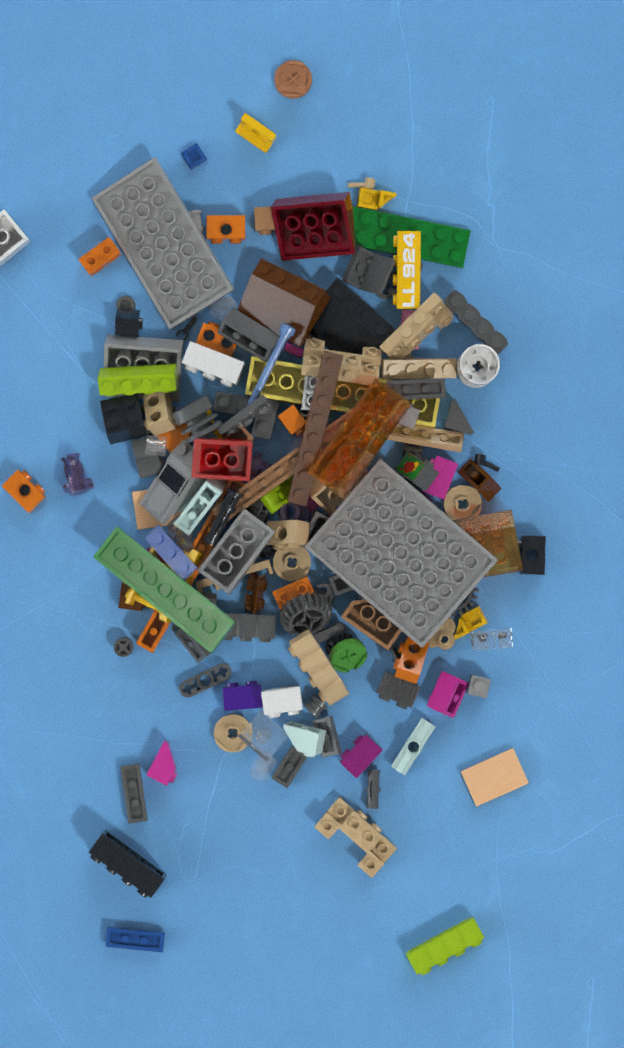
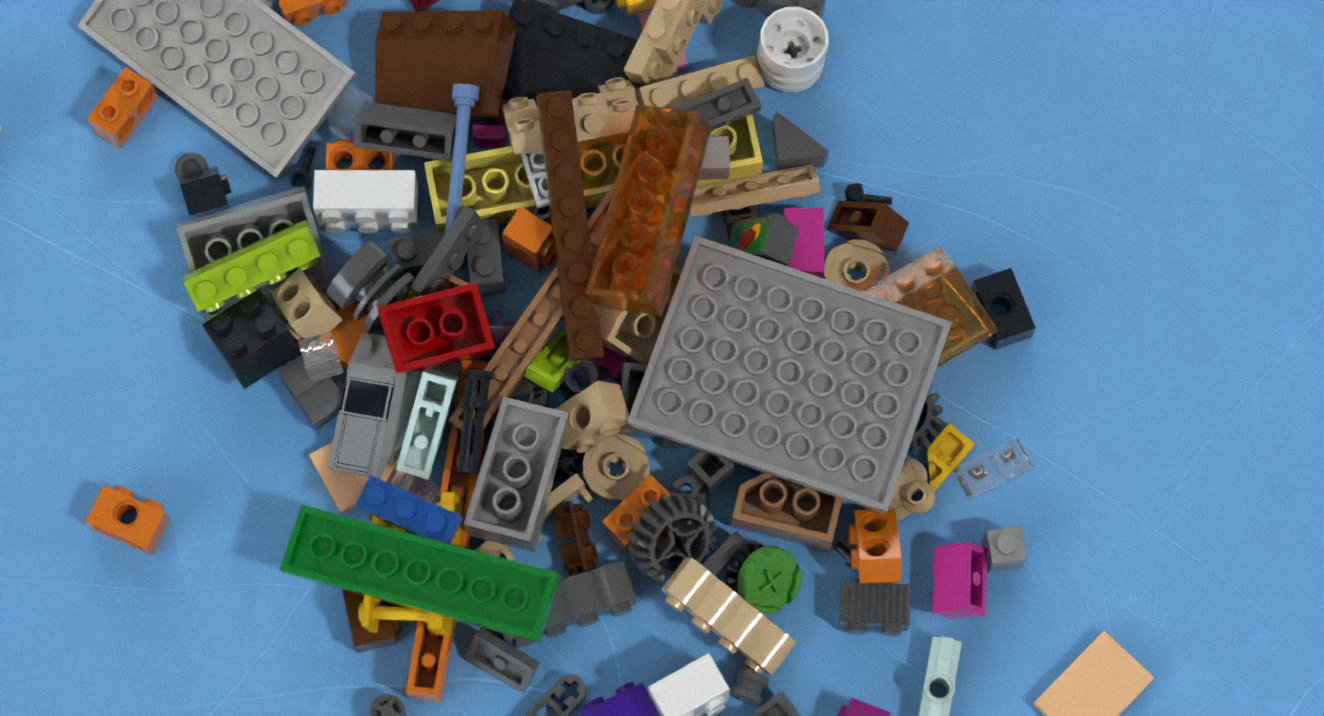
camera: 25 degrees left, 15 degrees down
(76, 479) = (211, 471): clear purple piece -> none

